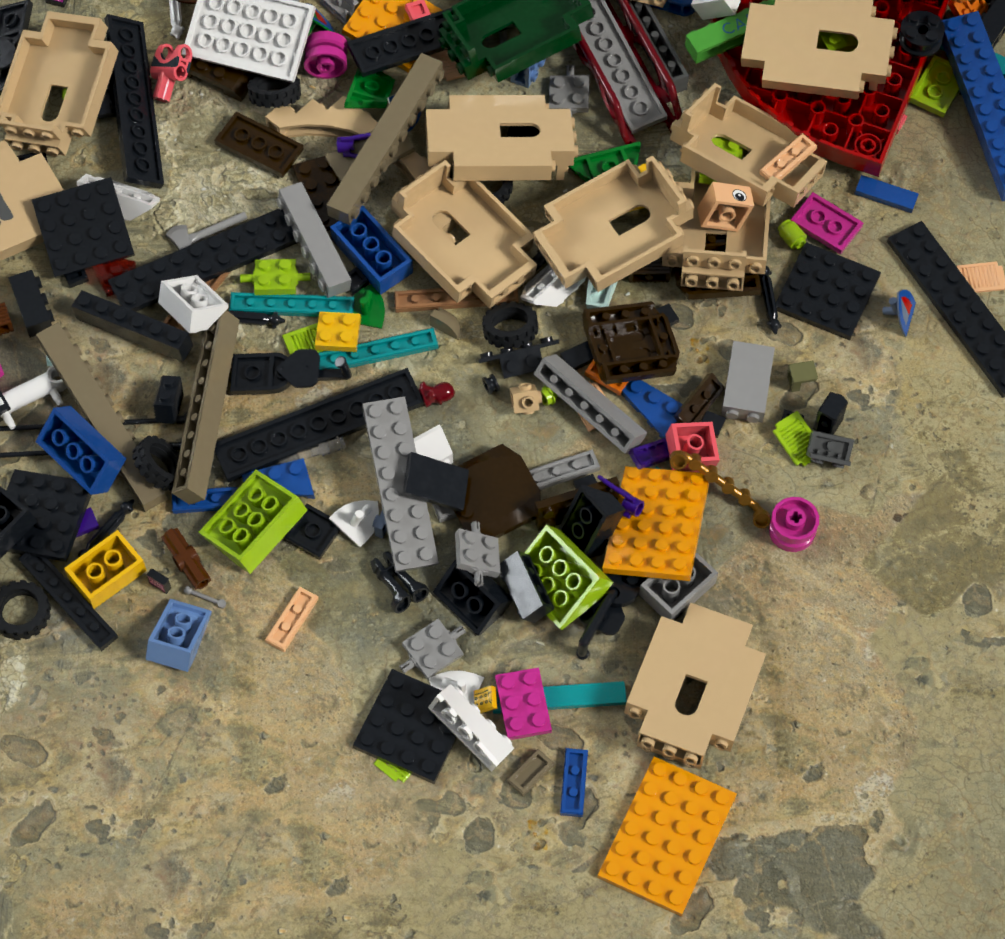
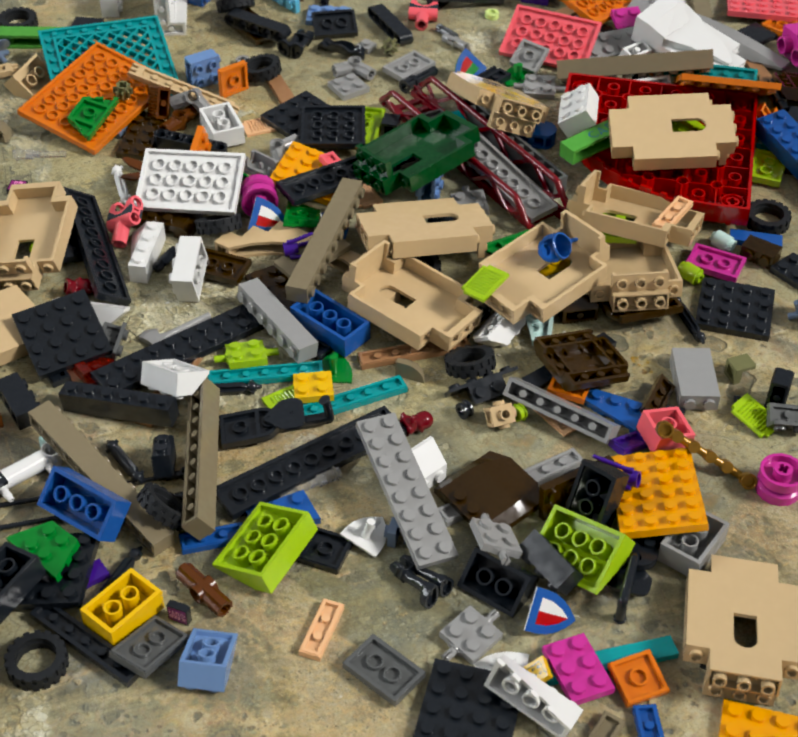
camera: 10 degrees left, 20 degrees down
(40, 491) = (50, 543): none -> green wing
(110, 157) = (78, 284): none -> dark red animal
(125, 613) = (149, 646): none -> dark grey tile
(129, 397) = (124, 461): none -> black wheel
(139, 234) = (115, 336): none -> dark grey bracket
(190, 109) = (145, 250): none -> white wedge
(209, 128) = (164, 260): none -> black axle
(221, 603) = (246, 625): light grey hinge -> none
(229, 156) = (188, 268): none -> white brick
(328, 85) = (265, 215): none -> shield
(341, 673) = (384, 670): none -> dark grey plate
(435, 482) = (439, 482): black tile -> none
(510, 640) = (548, 613): none -> blue shield
(542, 235) = (484, 283): none -> lime window
(579, 721) = (638, 678): none -> orange plate
(632, 200) = (555, 247): none -> blue piece
(725, 206) = (633, 249): light nougat brick -> none
(845, 193) = (723, 241): none -> light aqua brick
(883, 215) = (760, 251): none -> dark brown brick
(906, 180) = (773, 208): none -> black tyre
(921, 33) = (749, 123): black wheel -> none

